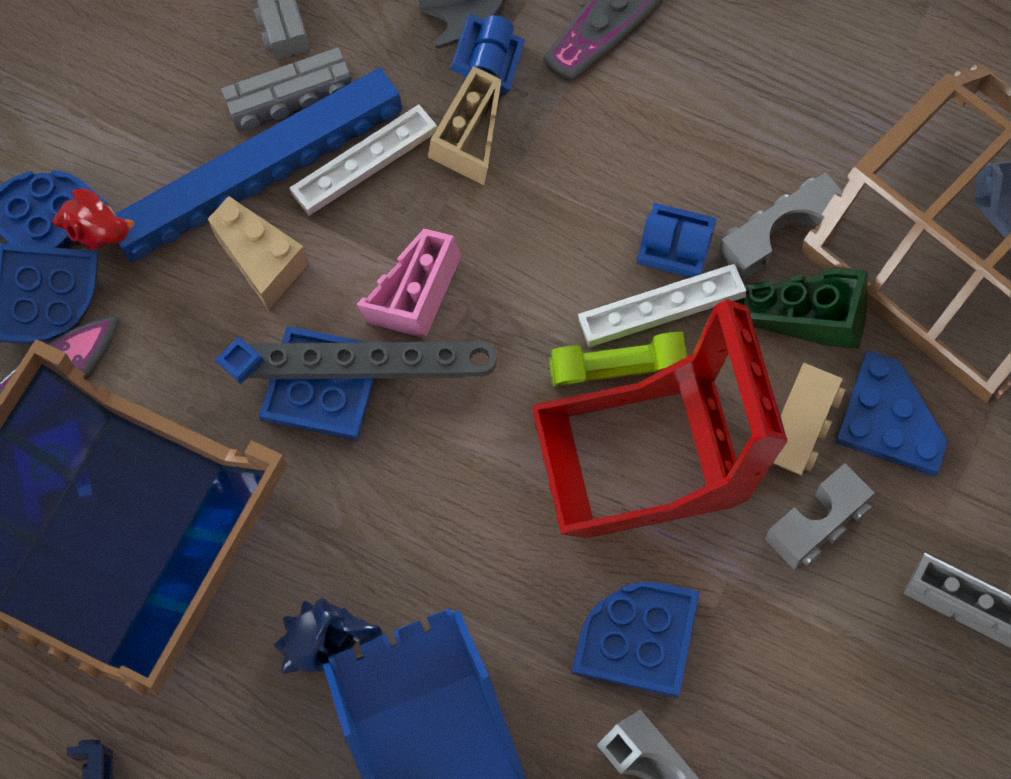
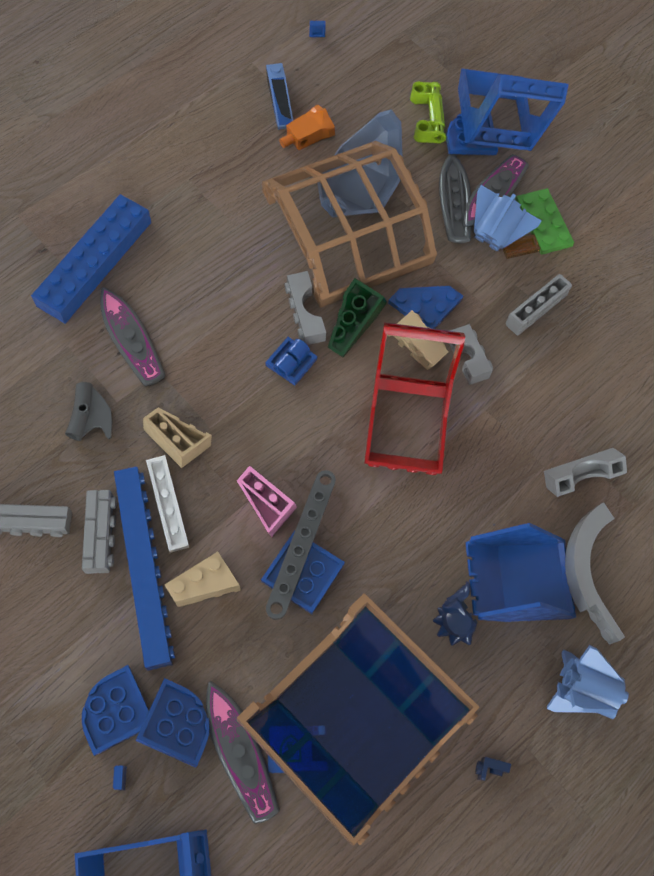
camera: 80 degrees left, 0 degrees up
(91, 221) = (148, 671): red animal -> none
(239, 360) = (277, 610): blue tile -> none
(490, 47) = (128, 410): blue plate -> none
(573, 366) = (350, 434): lime piece -> none
(638, 638) = (504, 459): blue plate -> none
(661, 305) = (327, 382): white plate -> none

